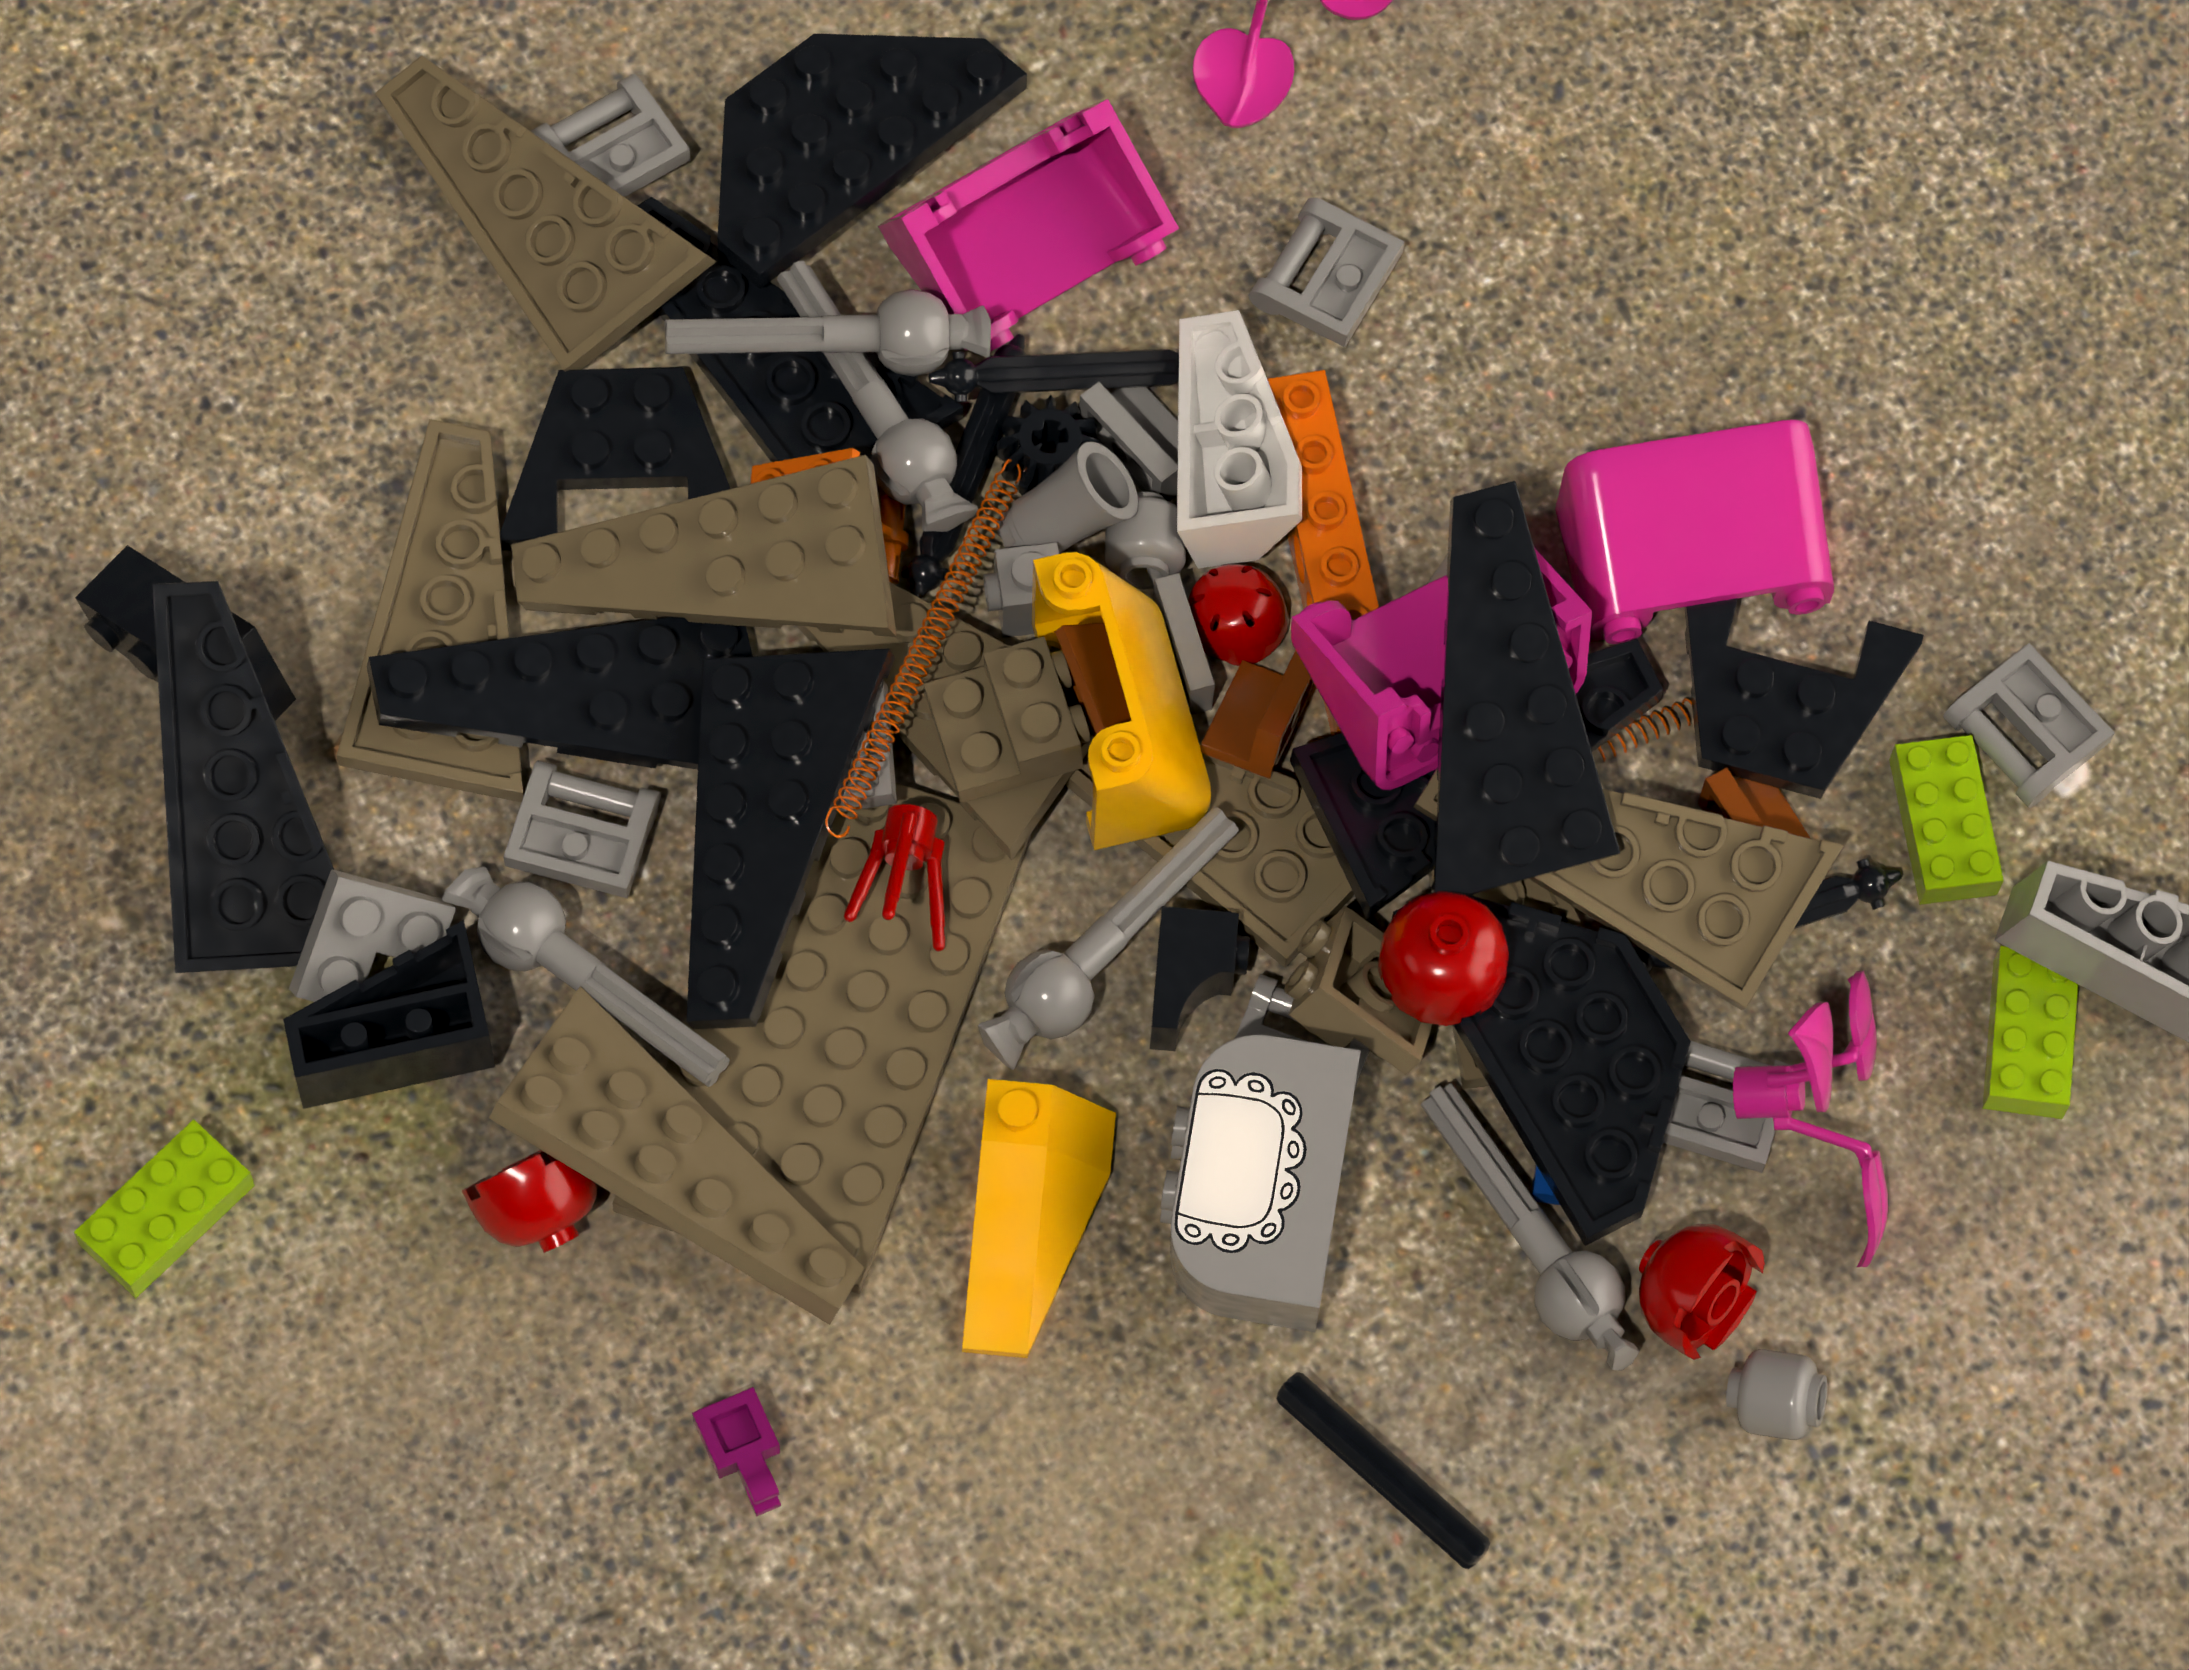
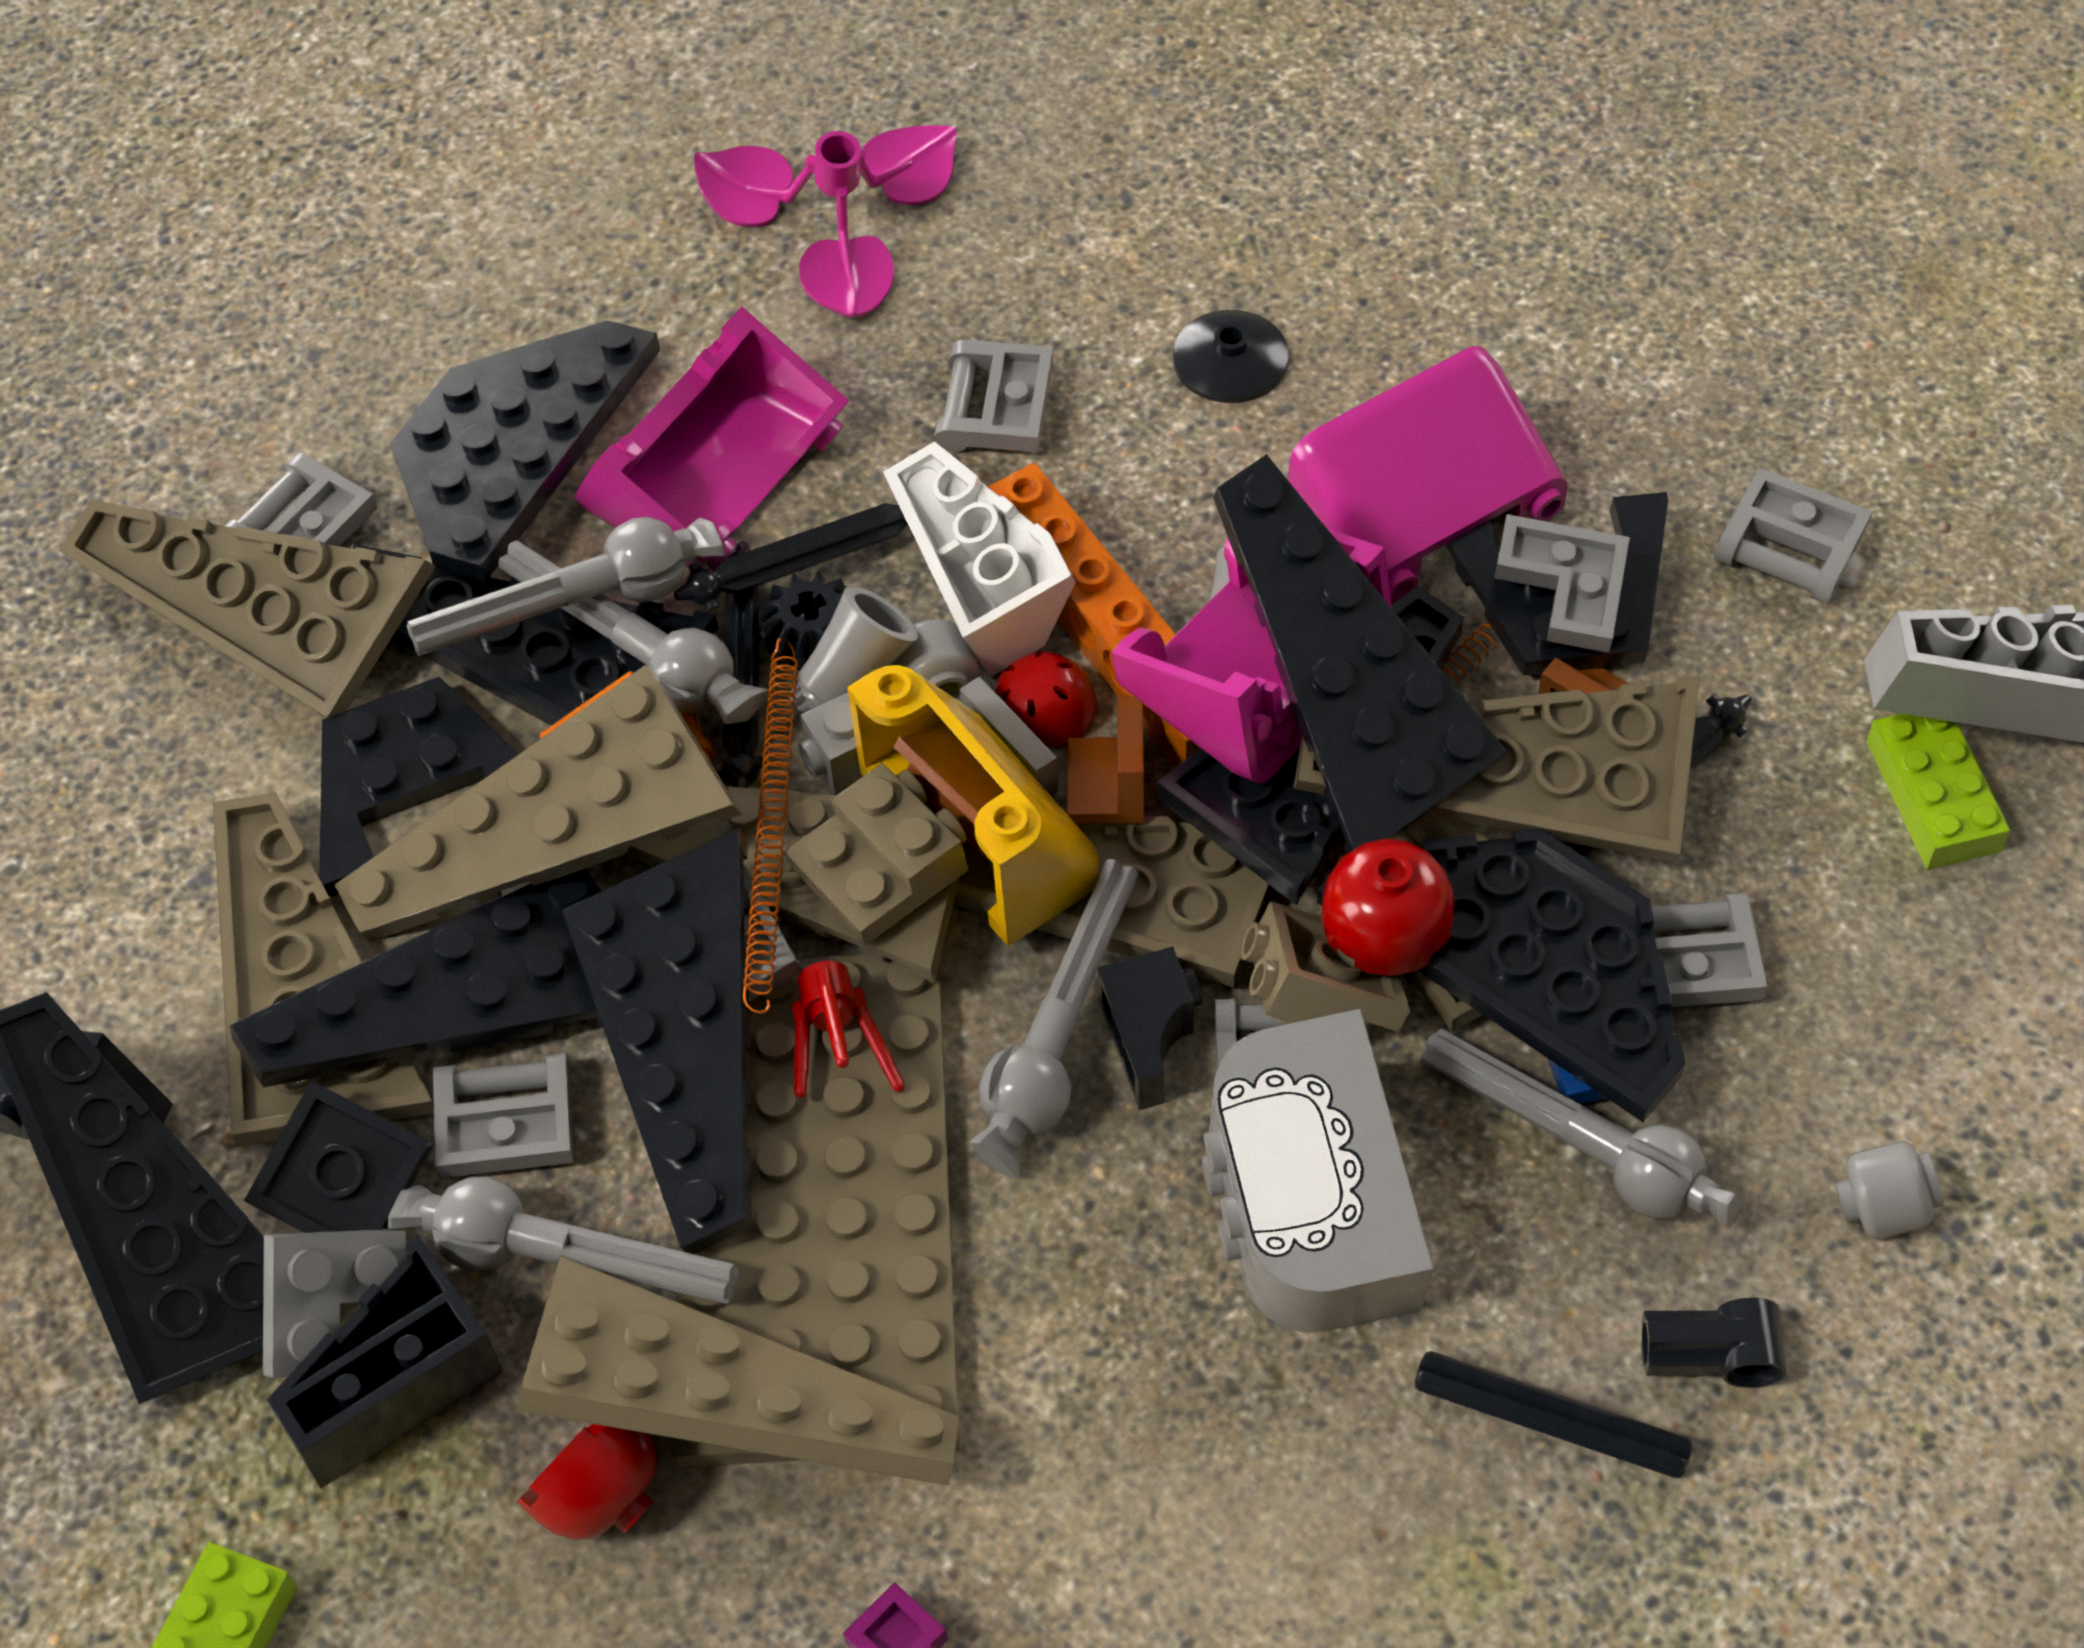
camera: 15 degrees left, 10 degrees down
(417, 825) = (337, 1166): none -> black plate
(1036, 1189) = (1093, 1292): yellow wedge -> none
(1138, 433) = (890, 576): light grey panel -> none
(1570, 1472) = (1734, 1342): none -> black piece
(1576, 334) = (1230, 356): none -> black dish
(1697, 1286) = (1763, 1117): red cylinder -> none
(1781, 1089) = (1752, 909): dark pink plant -> none
(1791, 688) = (1578, 564): none -> light grey plate
(1946, 820) = (1764, 638): lime piece -> none

